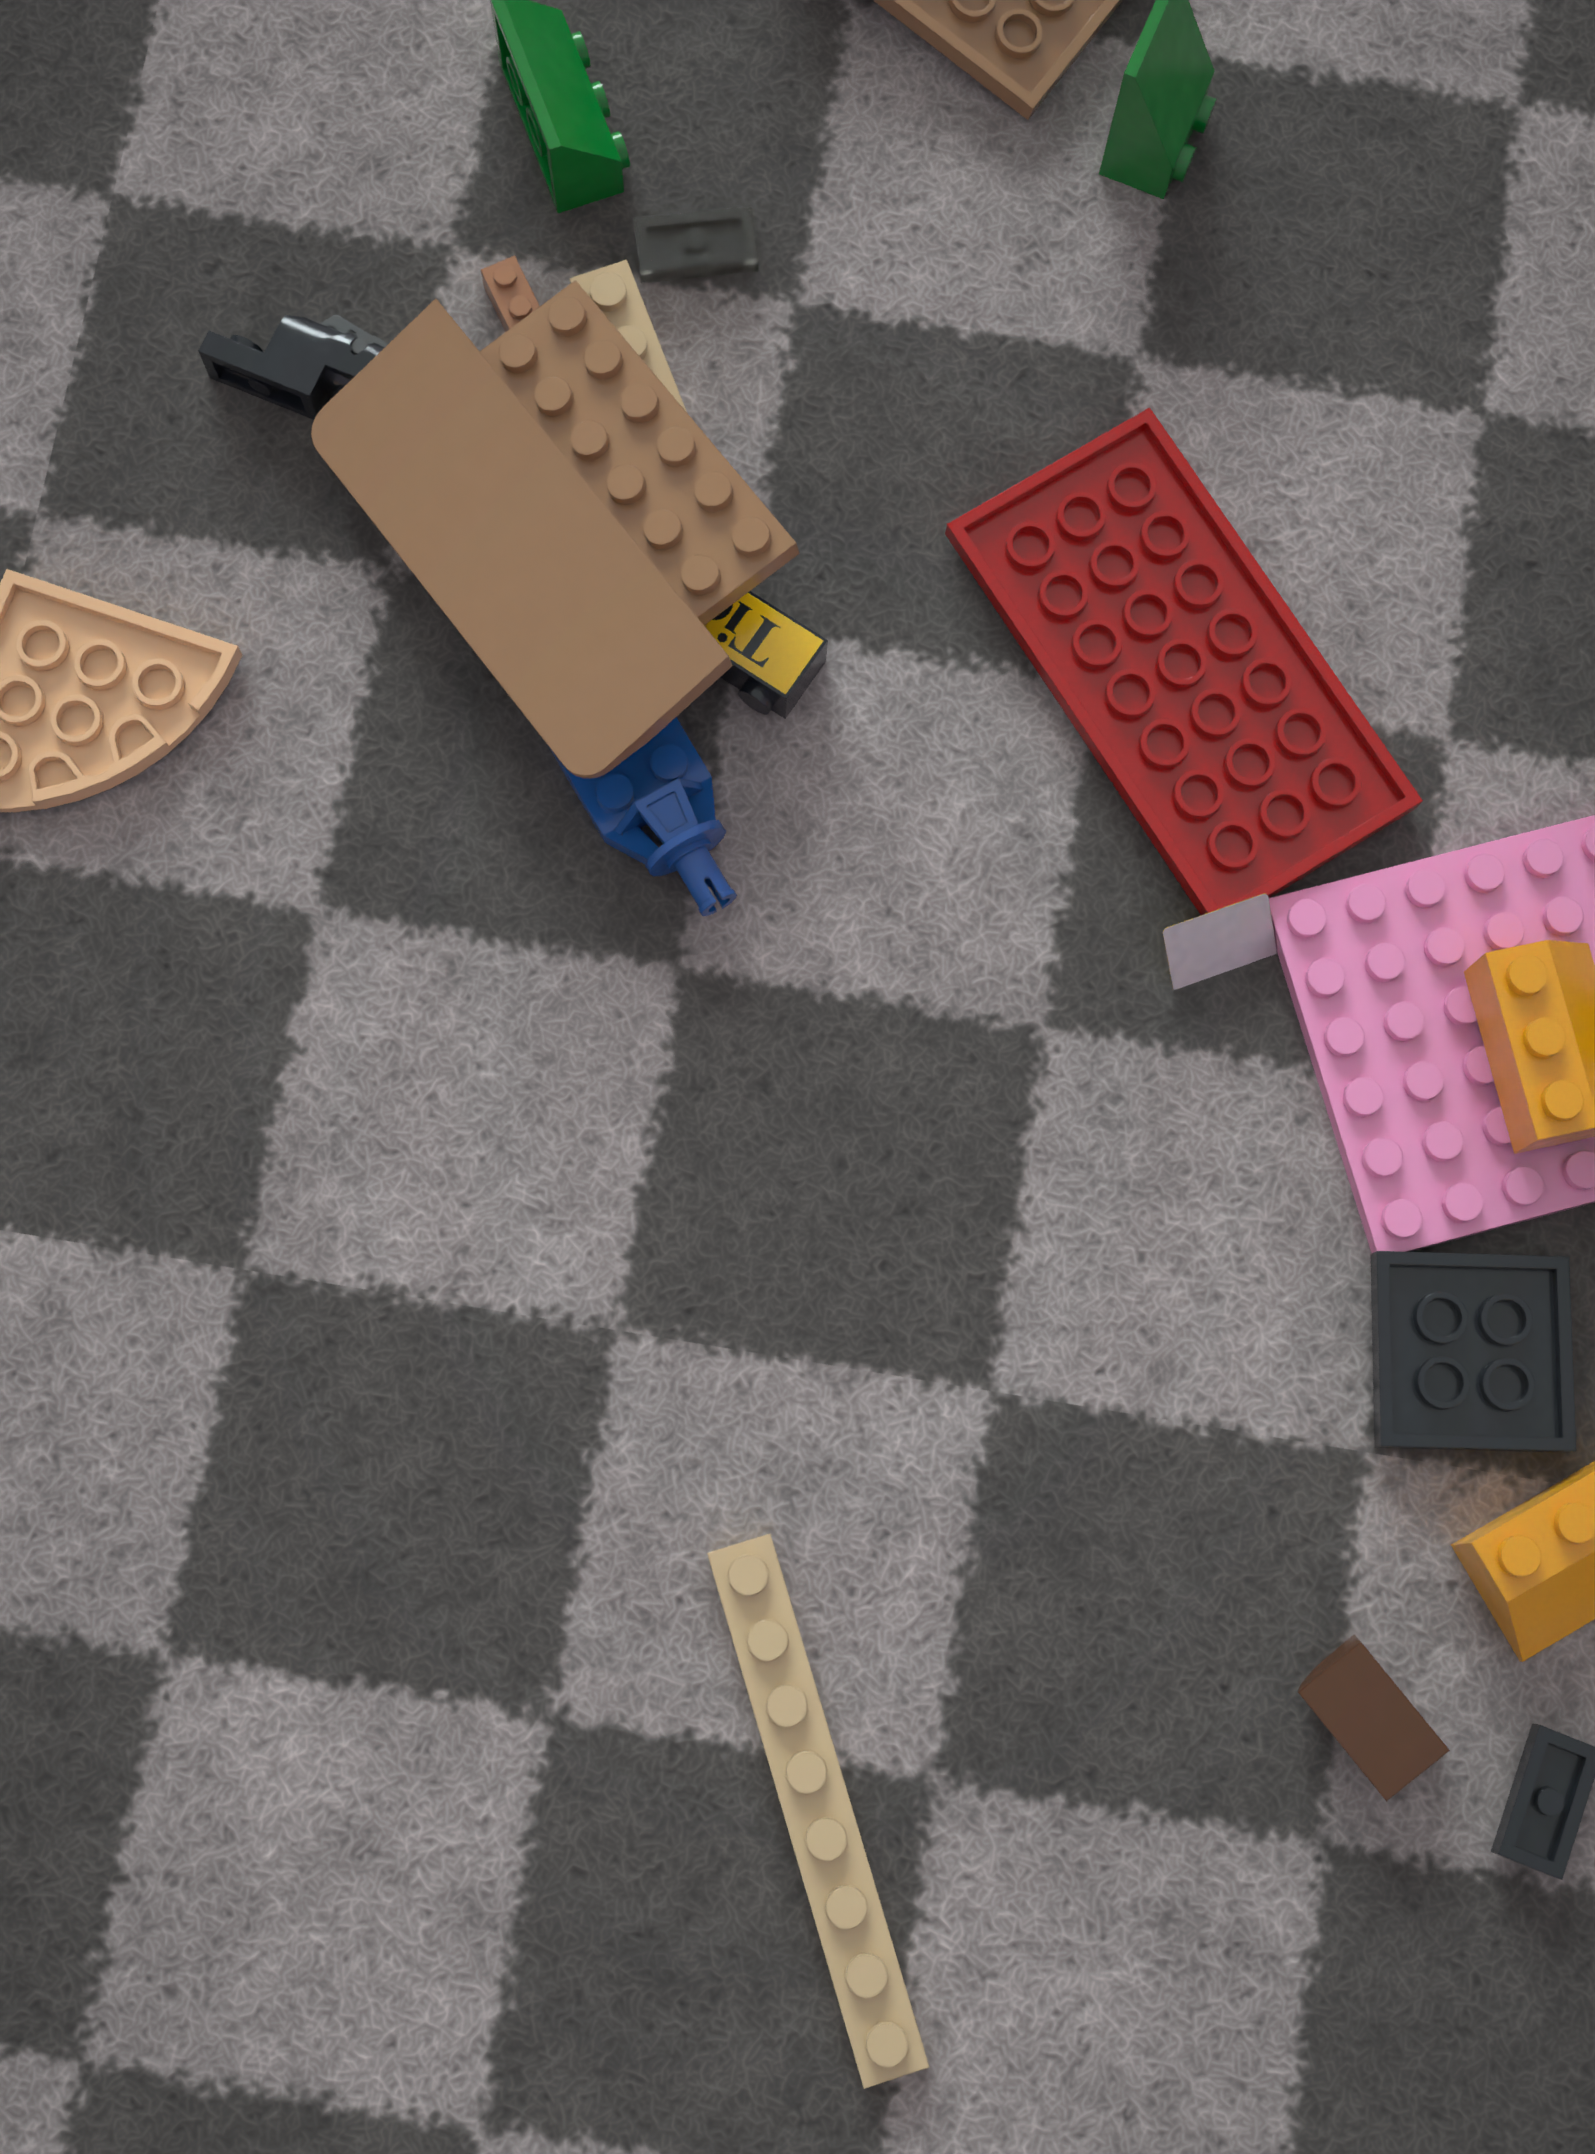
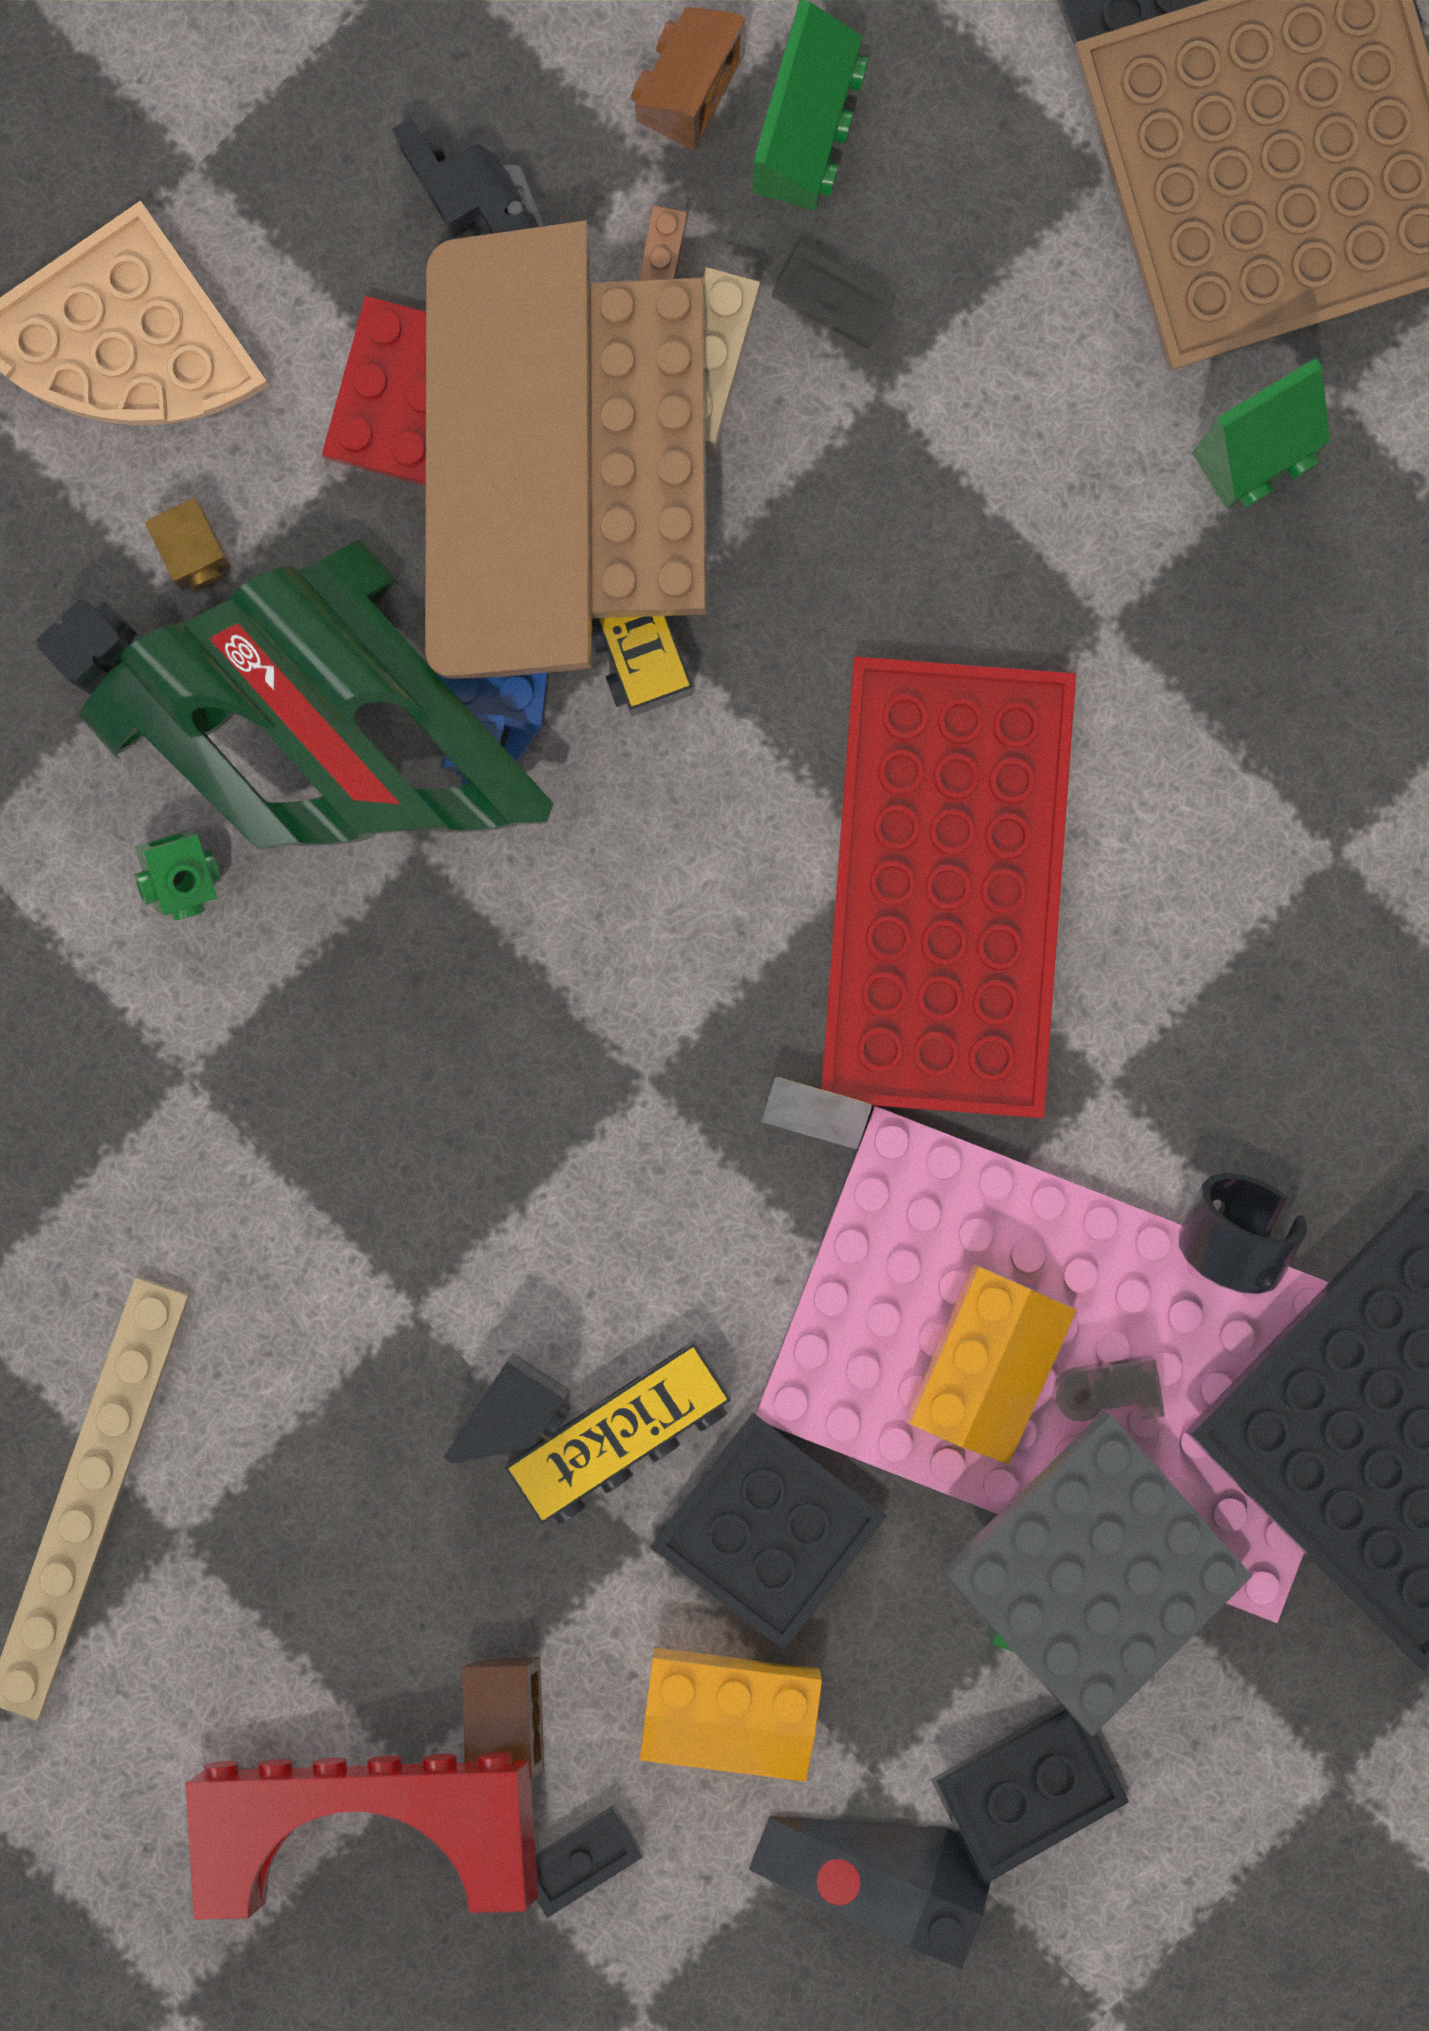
camera: 45 degrees right, 10 degrees up
(240, 984) = (86, 643): none -> black brick
(269, 838) = (189, 545): none -> pearl gold brick
(359, 591) = (383, 395): none -> red plate
(431, 138) = (691, 73): none -> dark orange slope
(465, 852) = (300, 662): none -> dark green panel
(474, 1140) = (162, 861): none -> green brick
(1162, 1409) = (512, 1413): none -> black slope
(1270, 1360) = (618, 1433): none -> yellow brick
(1410, 1822) = (469, 1809): none -> red arch

